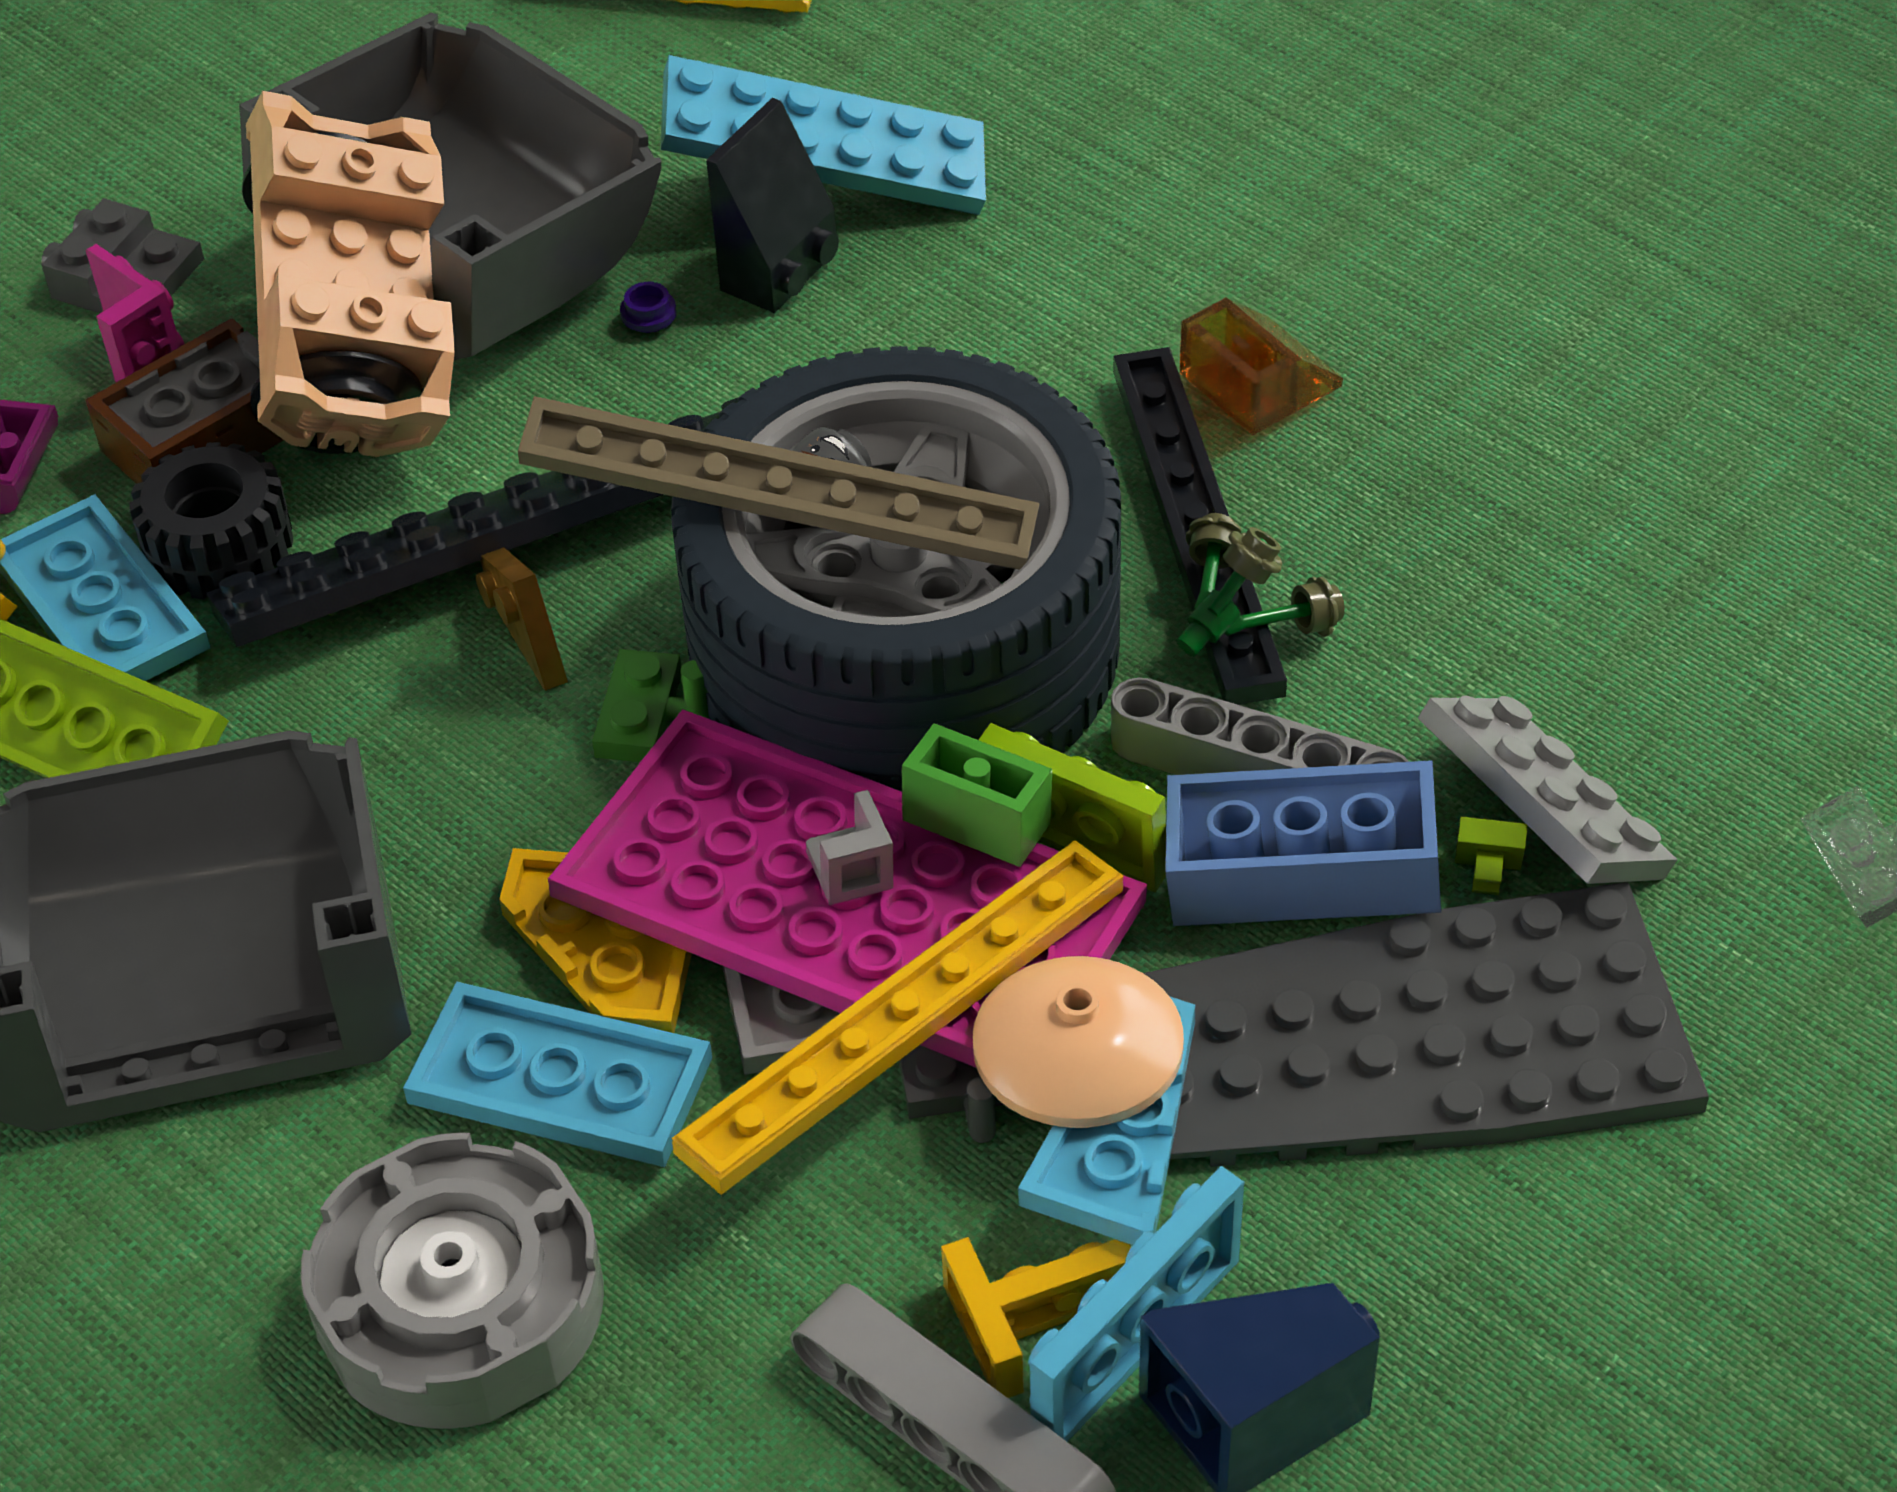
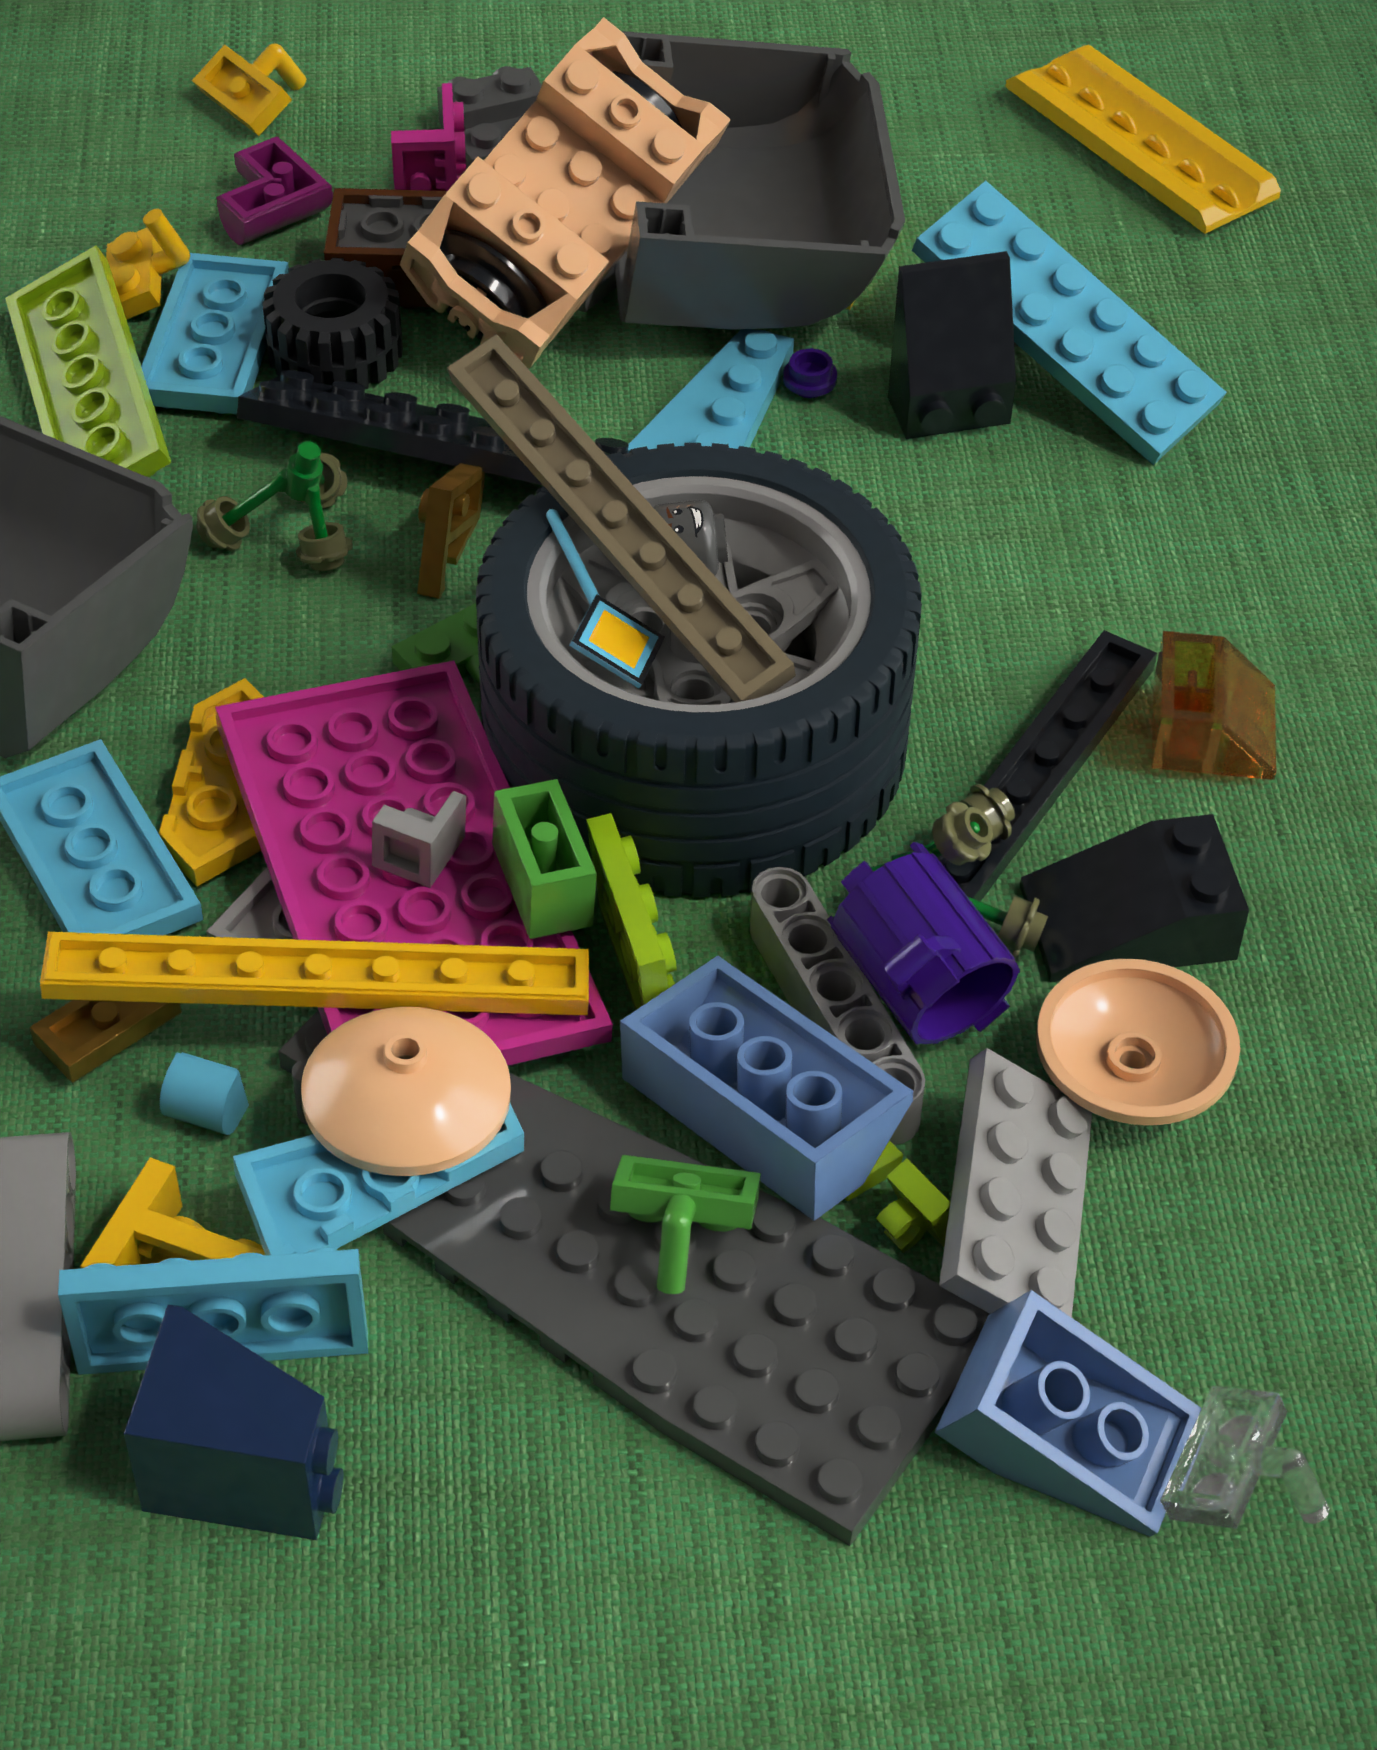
camera: 40 degrees right, 0 degrees up
(363, 656) = (308, 478): none -> plant
(603, 362) = (725, 397): none -> medium azure wing
(746, 1214) = (92, 1031): none -> pearl gold plate
(862, 580) = (607, 631): none -> piece
(898, 1176) = (203, 1093): none -> medium azure brick
(1306, 658) = (924, 947): none -> dark purple container
(1357, 952) = (682, 1195): none -> bright green plate
(1372, 528) = (1142, 895): none -> black slope
(1498, 625) = (1142, 1019): none -> light nougat dish
(1741, 908) = (1068, 1415): none -> medium blue slope

